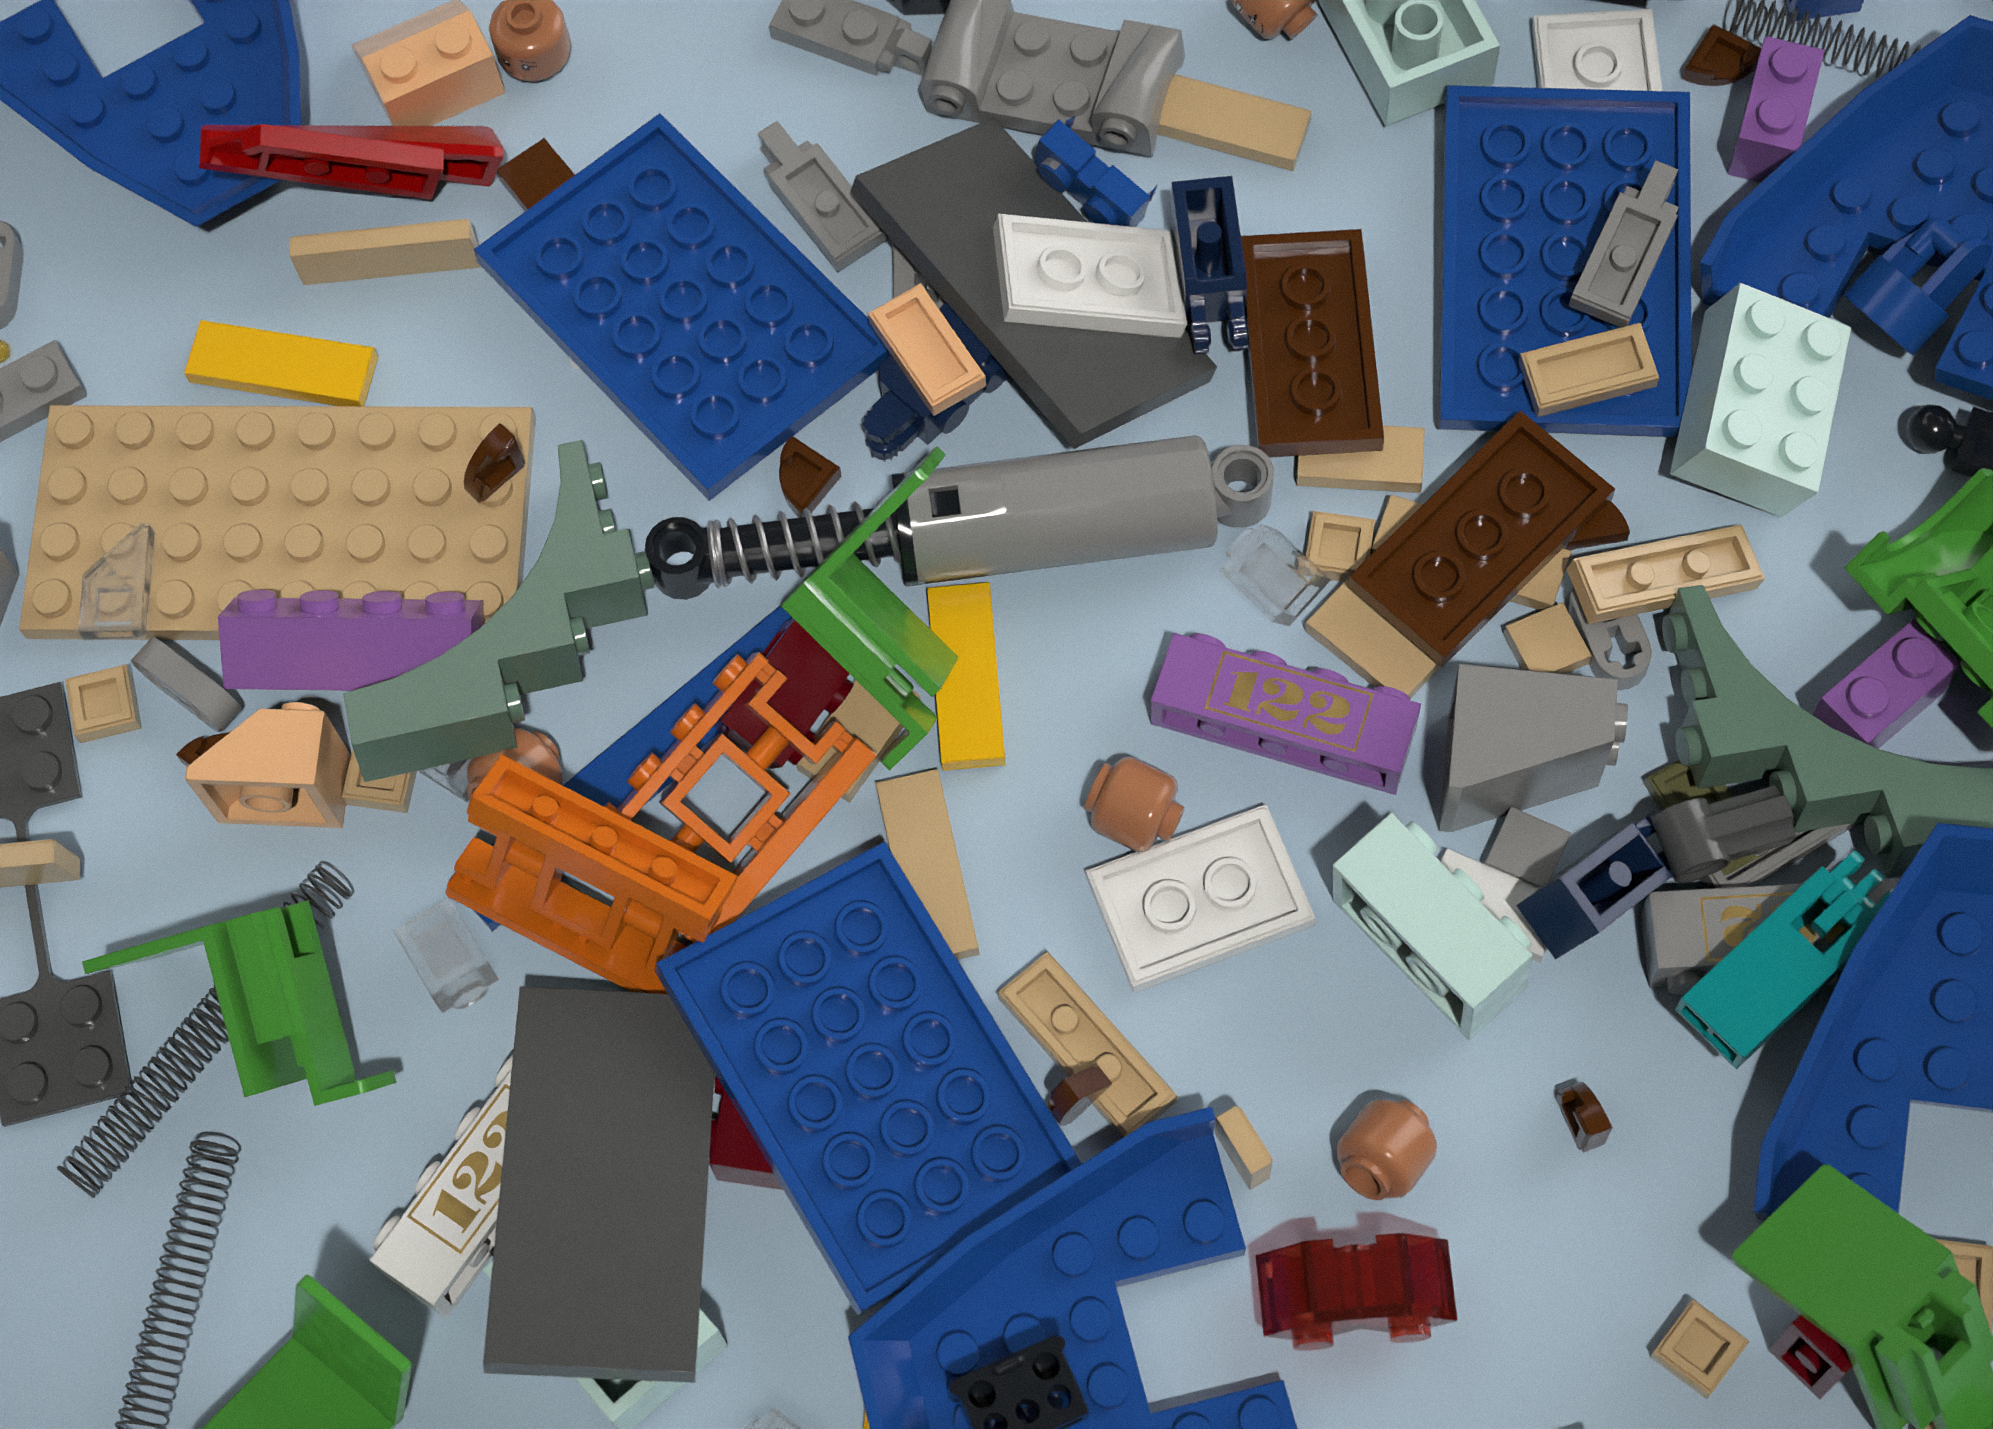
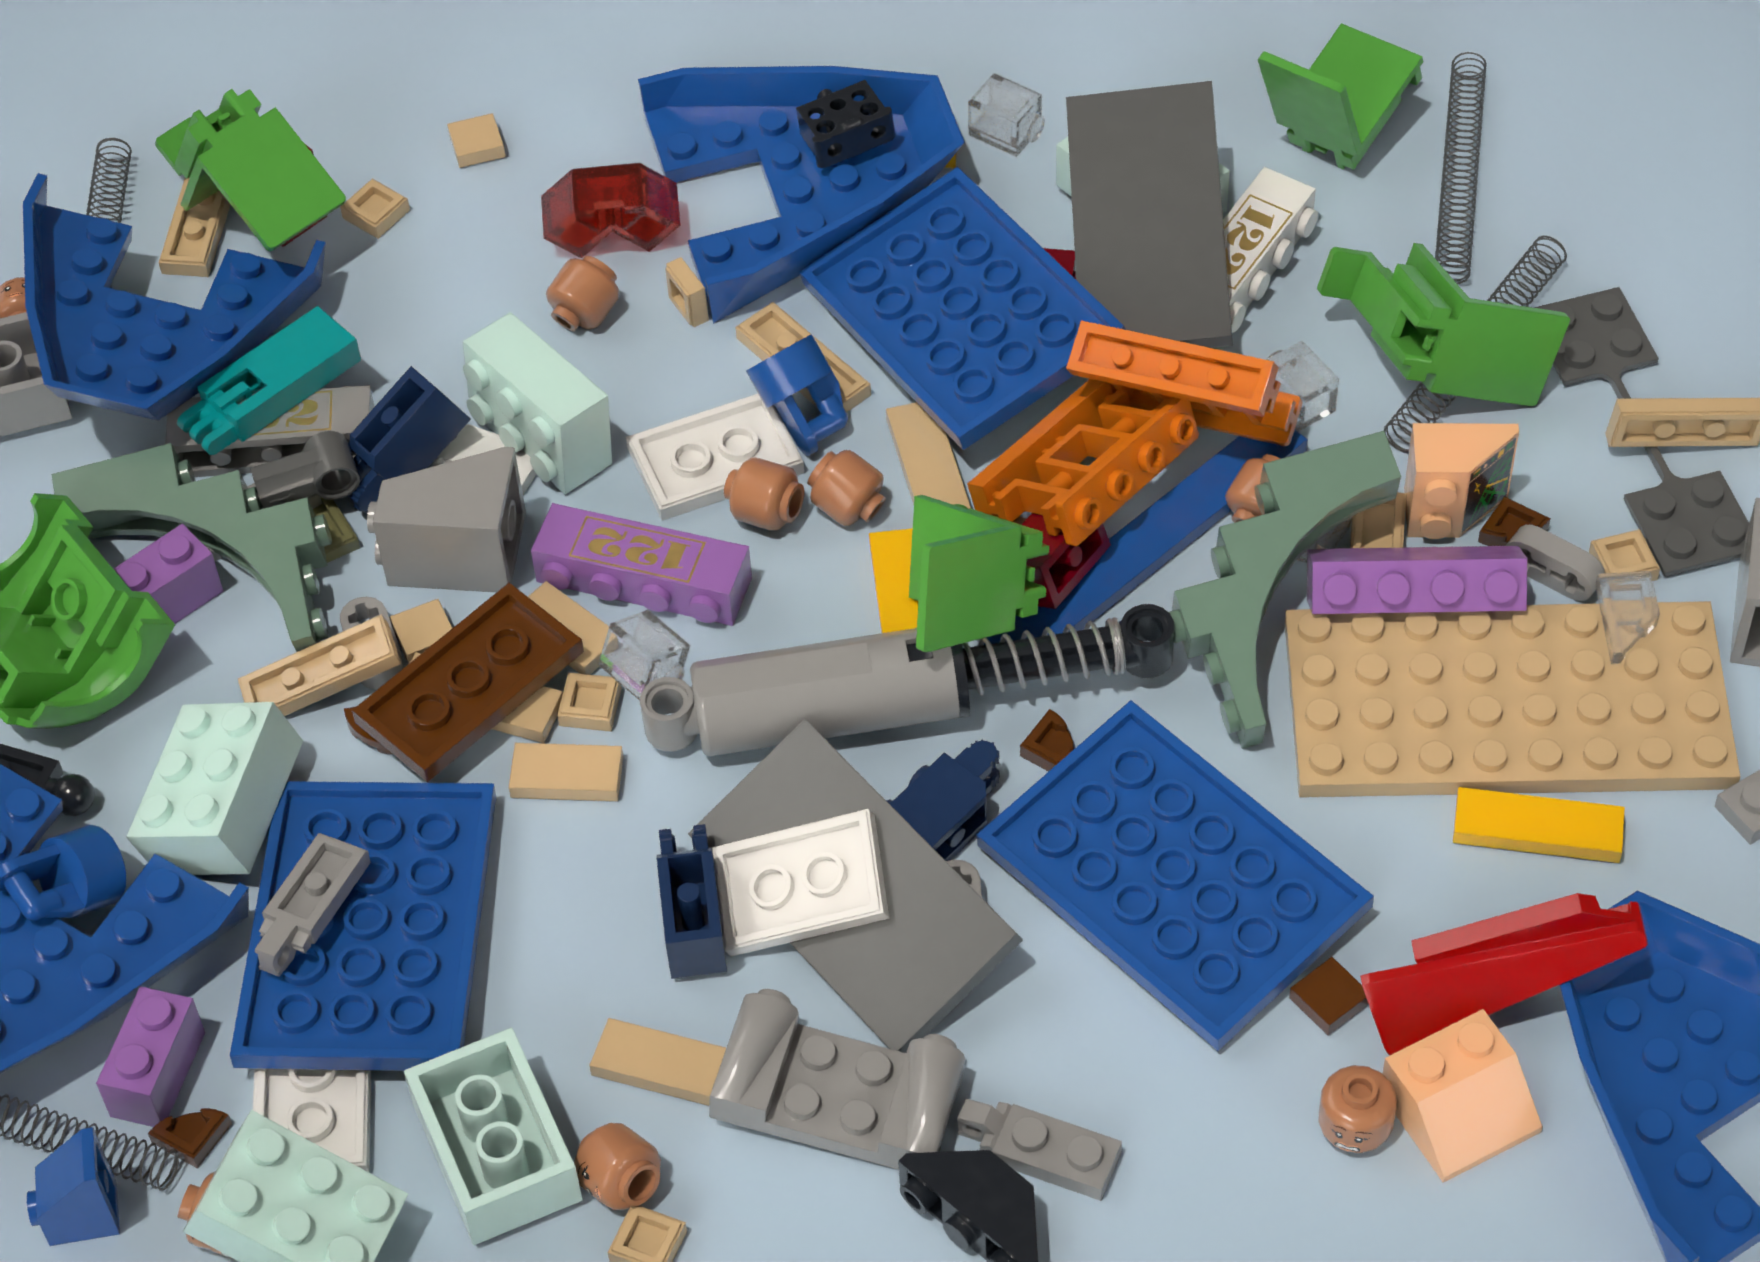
camera: 175 degrees right, 15 degrees down
(384, 251) = (1434, 911): tan tile -> none
(493, 464) = (1317, 708): reddish brown tile -> none
(819, 197) = (1062, 978): light grey hinge -> none
(927, 349) = (943, 799): light nougat tile -> none
(1030, 816) = (846, 487): none -> nougat head
(1077, 1093) = (808, 308): reddish brown tile -> none
(1094, 953) = (788, 373): none -> blue piece
(1105, 191) = (785, 968): blue piece -> none
(1311, 344) = (602, 848): reddish brown plate -> none
(1584, 1116) = (435, 322): reddish brown tile -> none
(1588, 370) = (363, 811): tan tile -> none

